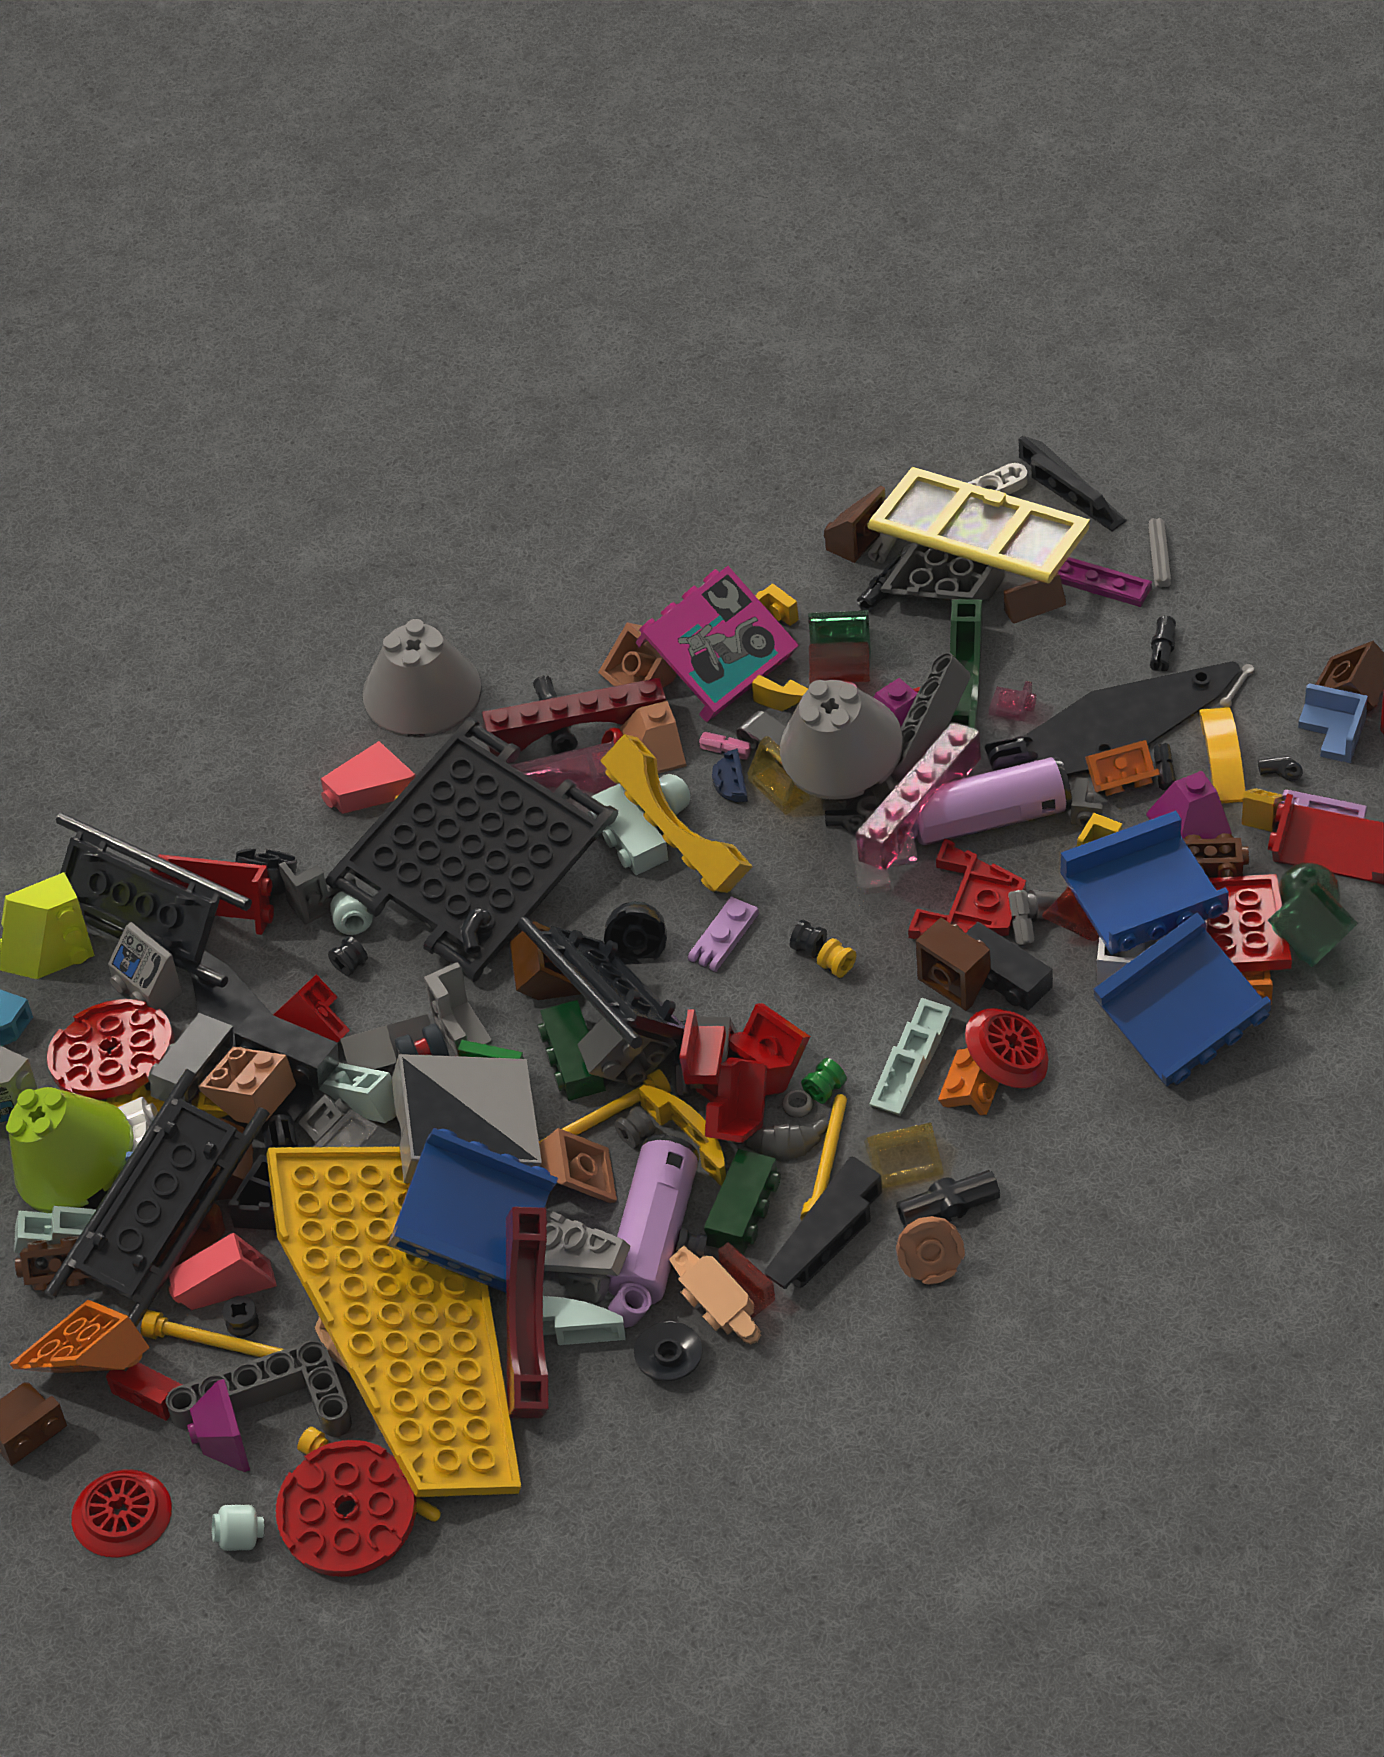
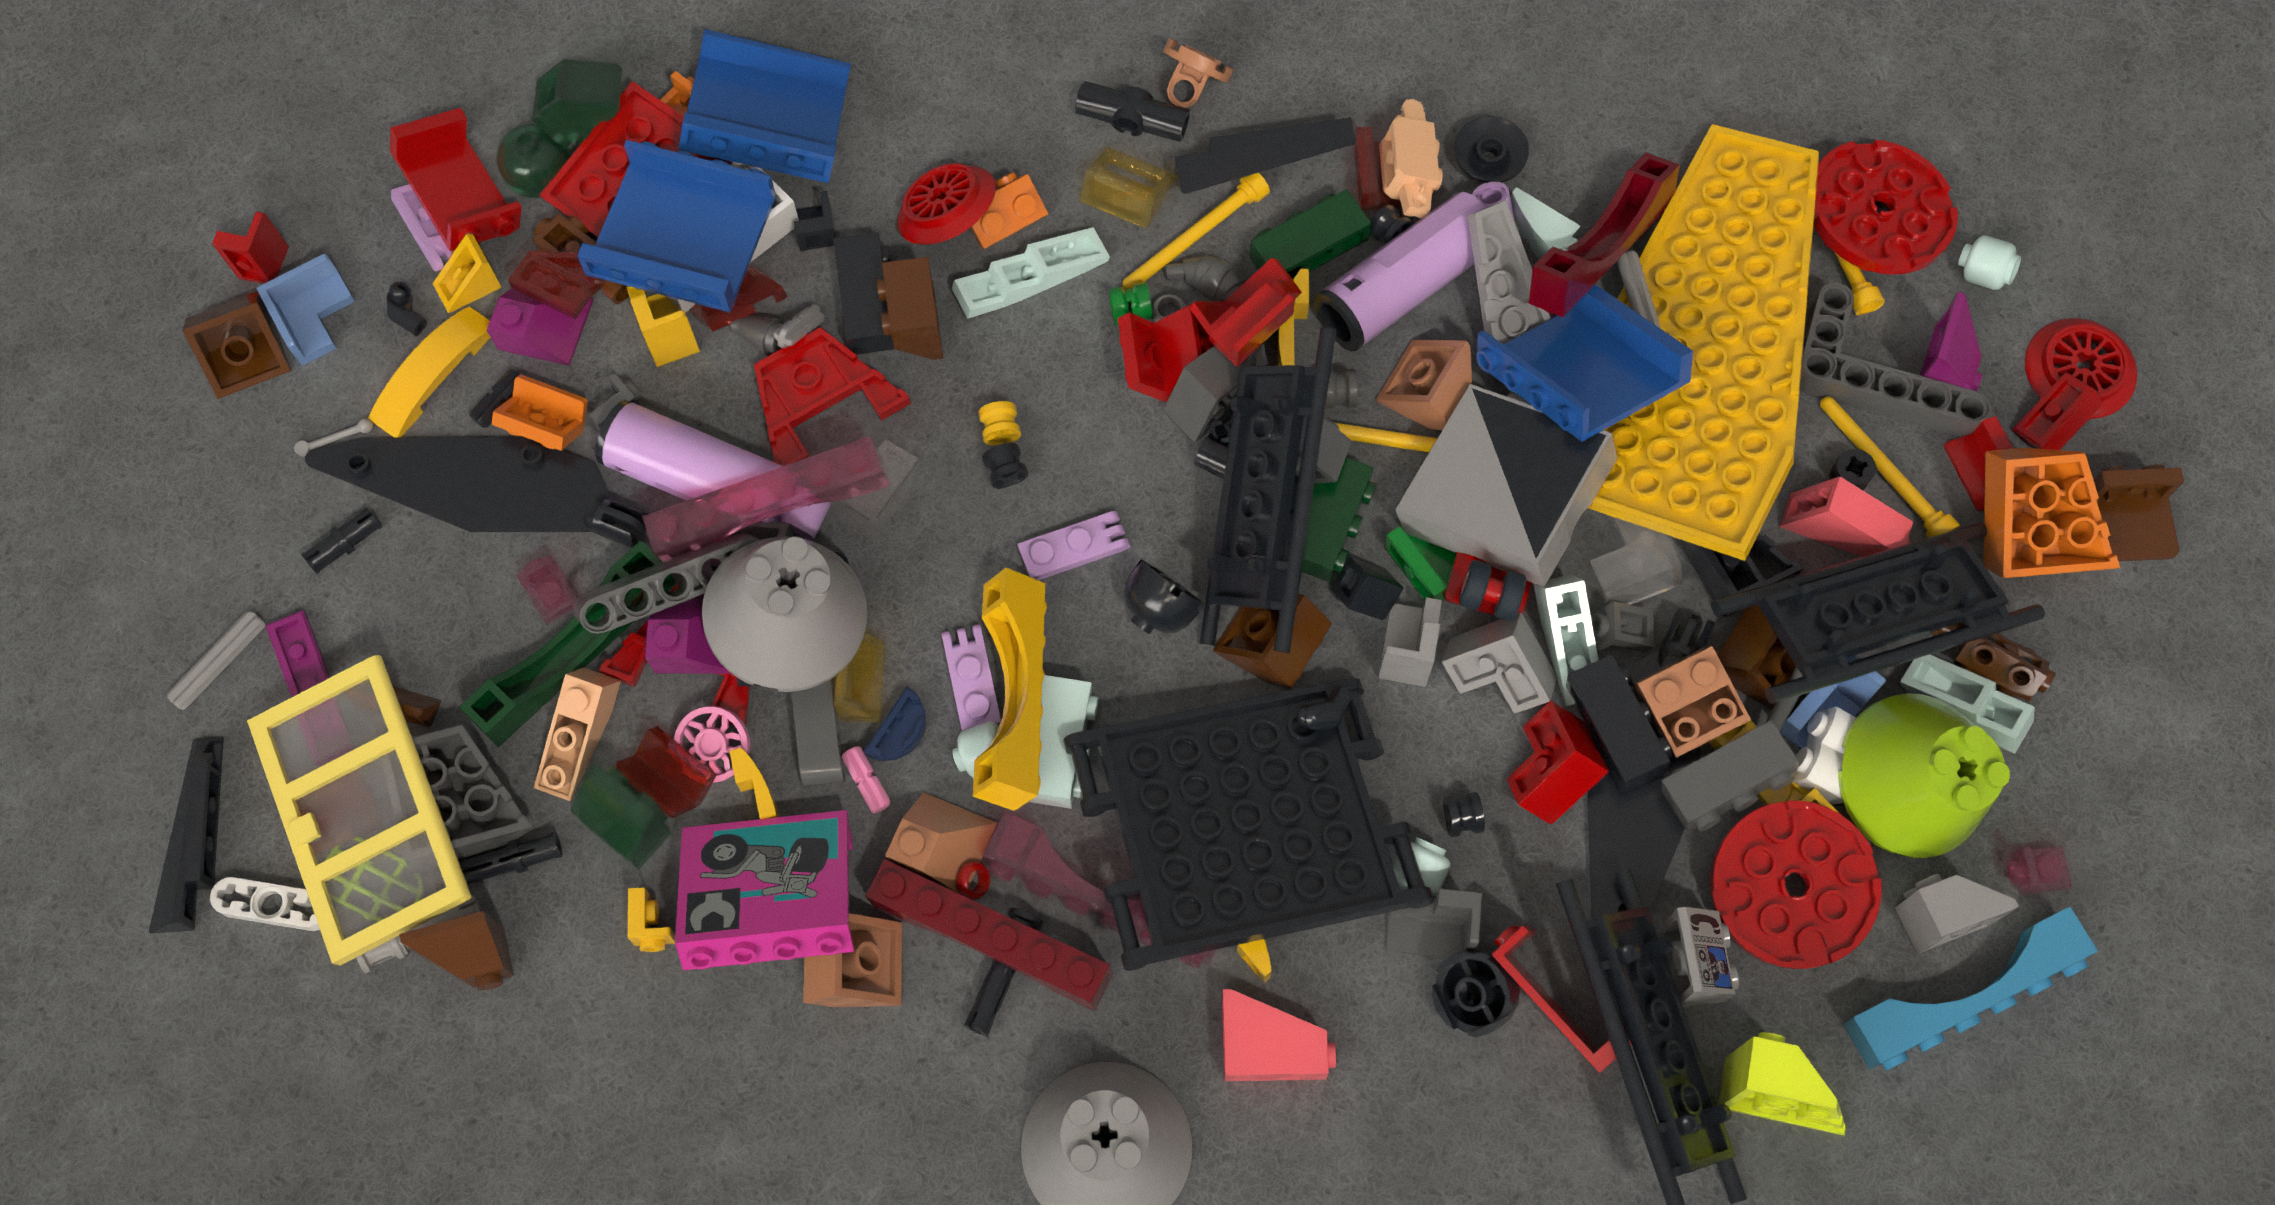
camera: 145 degrees left, 20 degrees up
(117, 1451) = (2058, 414): none -> red slope
(470, 1302) = (1637, 287): none -> light grey axle
(513, 1029) = (1367, 588): none -> black panel
(716, 827) = (971, 678): none -> lavender hinge
(913, 651) = (575, 730): none -> light nougat slope
(1077, 983) = (815, 225): none -> black panel
(1199, 818) = (555, 281): none -> clear red wing

